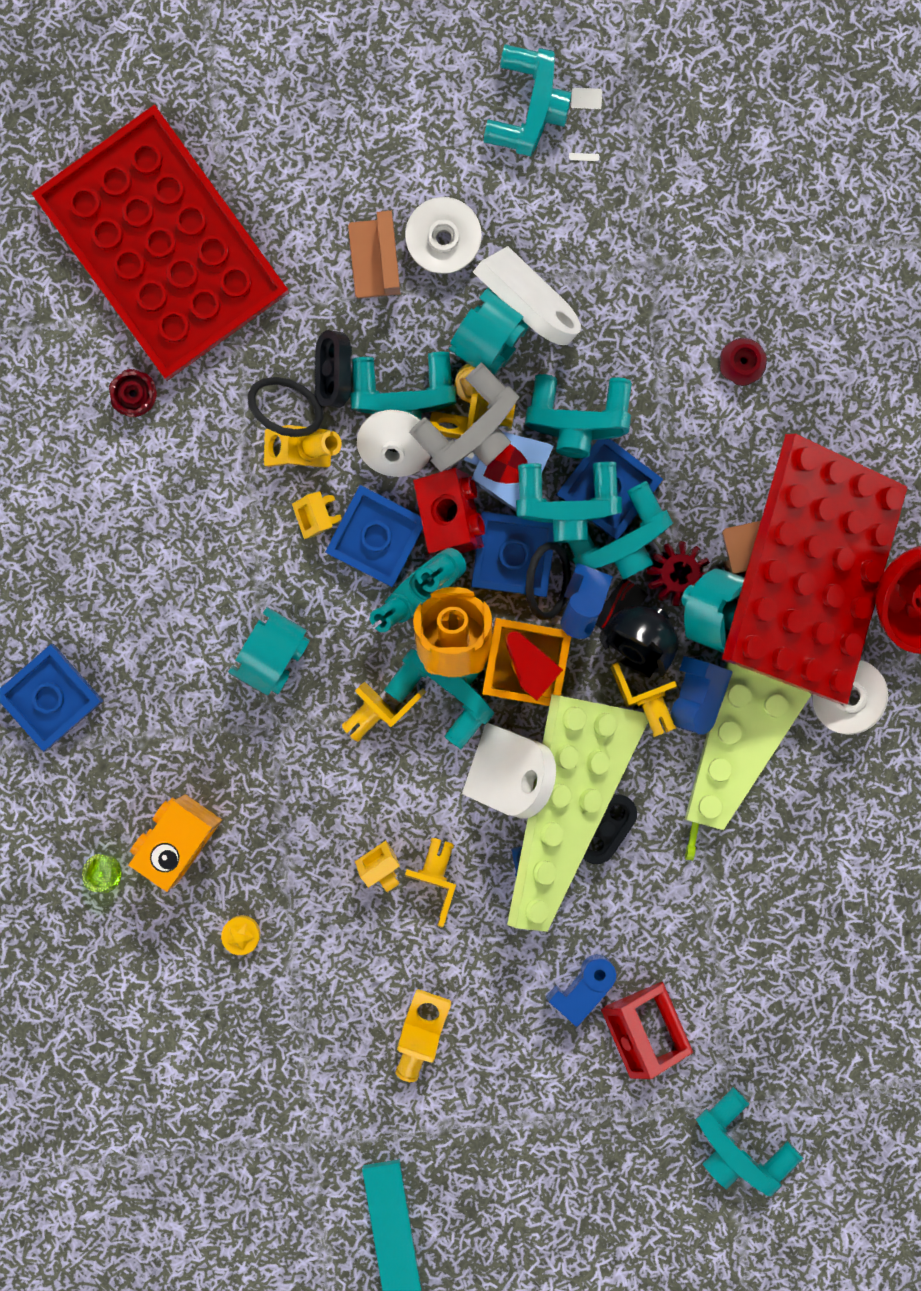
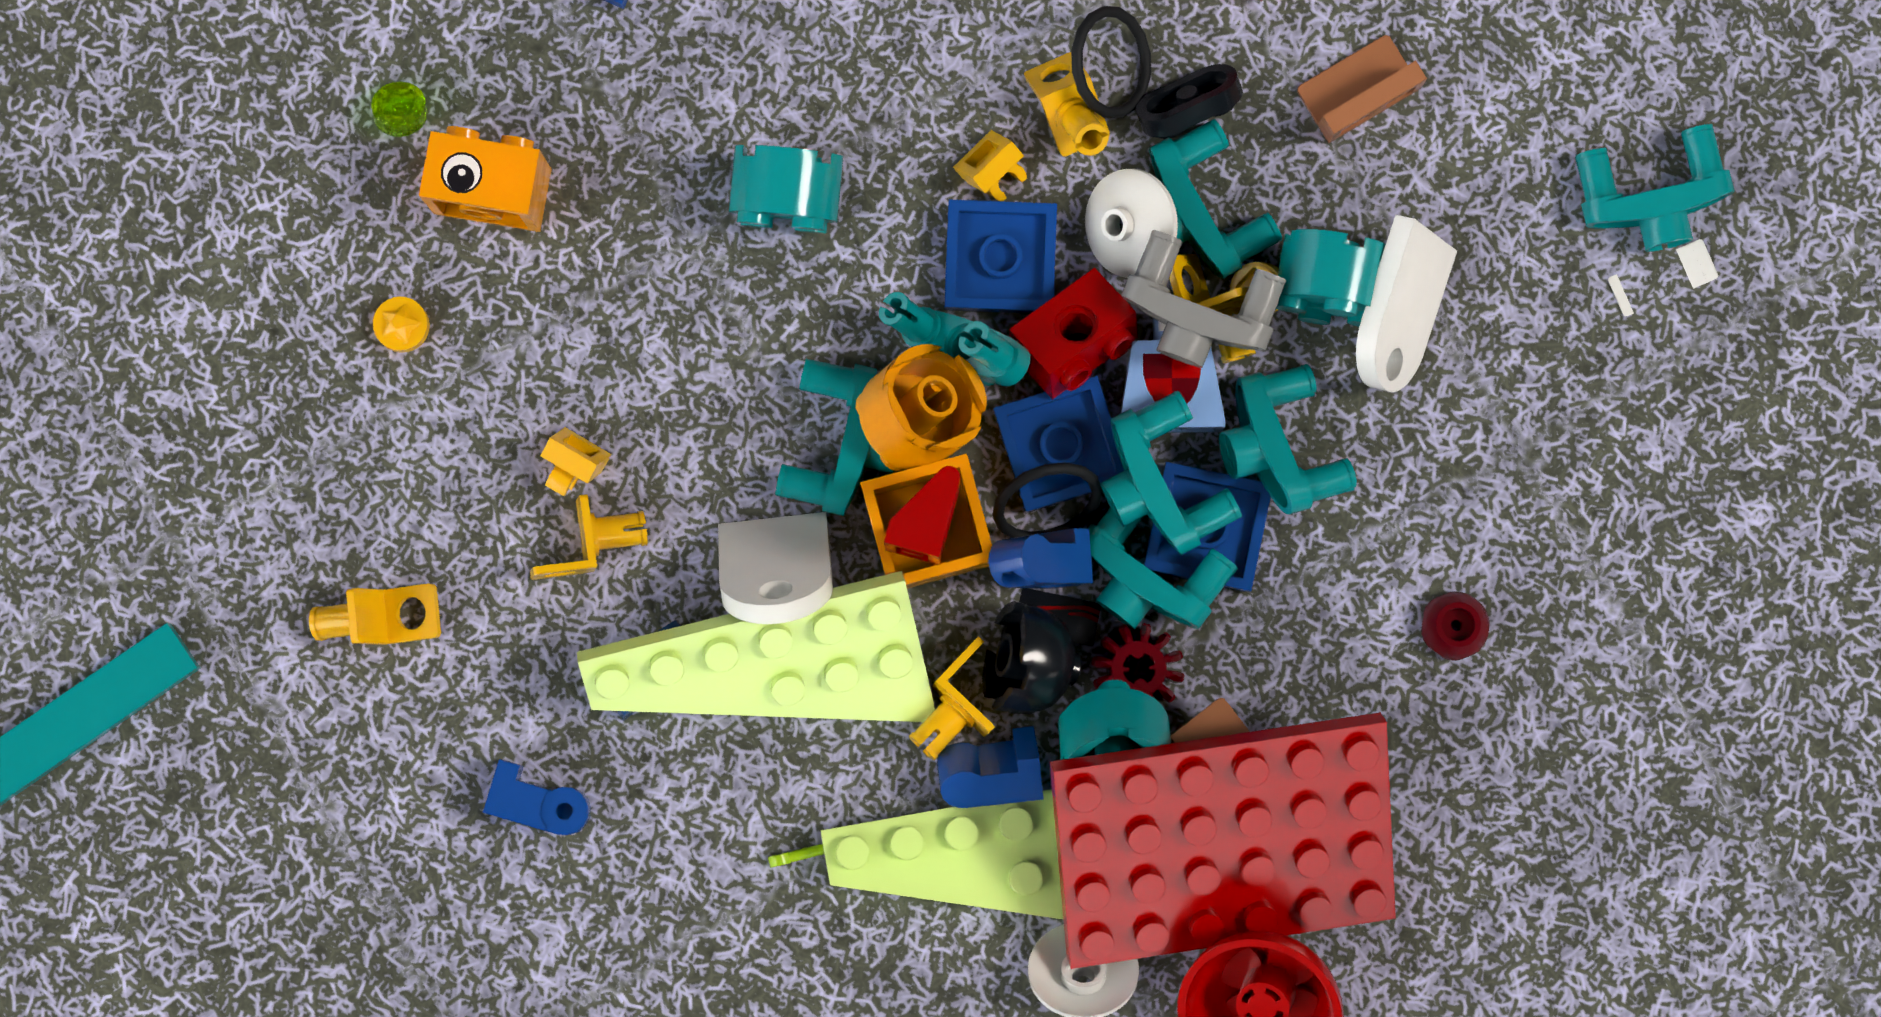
camera: 60 degrees right, 5 degrees down
(374, 710) = (776, 360): yellow bracket -> none
(440, 216) = (1444, 138): white dish -> none
(612, 830) = (761, 738): black plate -> none
(631, 1036) = (499, 895): red tile -> none

